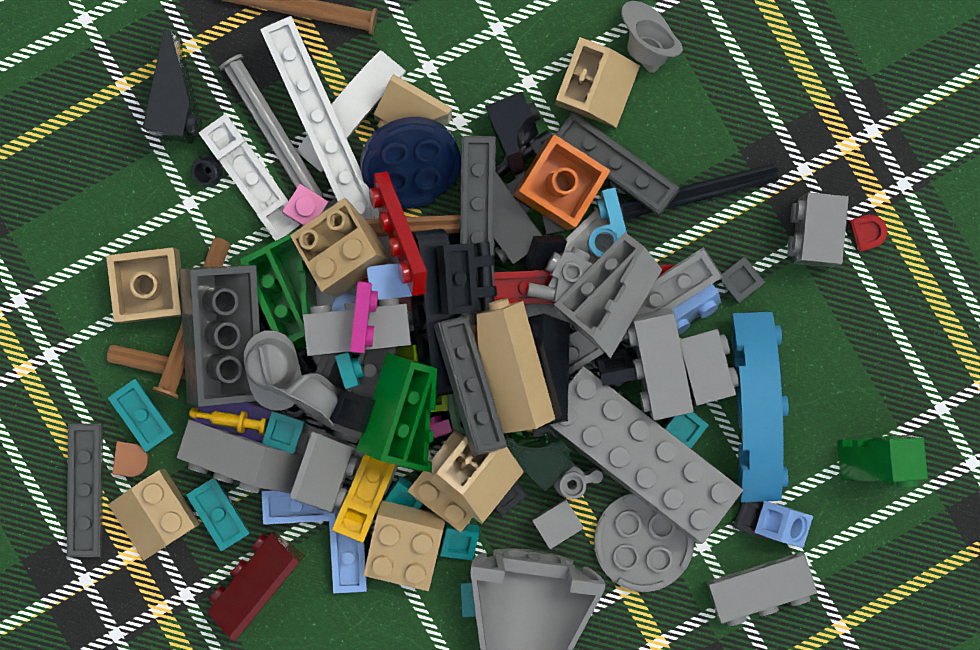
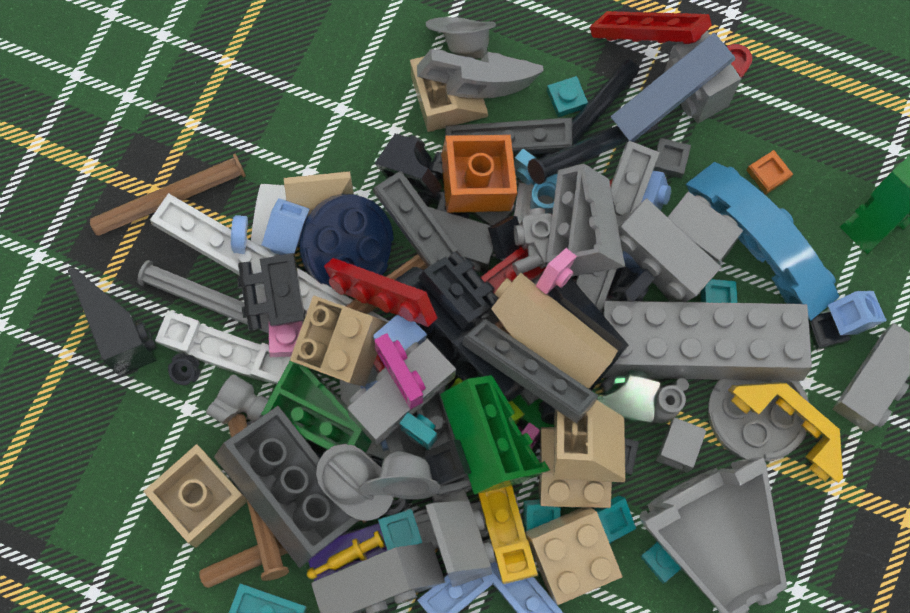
camera: 30 degrees left, 15 degrees down
(231, 226) = (234, 398): none -> light grey piece
(324, 95) = (239, 234): none -> light blue tile
(325, 169) = (281, 291): none -> black plate
(367, 115) = (285, 227): none -> light blue brick
(551, 324) = (557, 272): none -> bright pink plate
(626, 96) = (473, 78): none -> light grey slope
(645, 531) = (826, 454): none -> yellow slope
(678, 226) = (577, 153): none -> black axle
(697, 159) = (567, 96): none -> teal plate
(778, 229) = (673, 87): none -> sand blue tile
(807, 156) = (651, 26): none -> red plate
(816, 351) = (769, 172): none -> orange tile

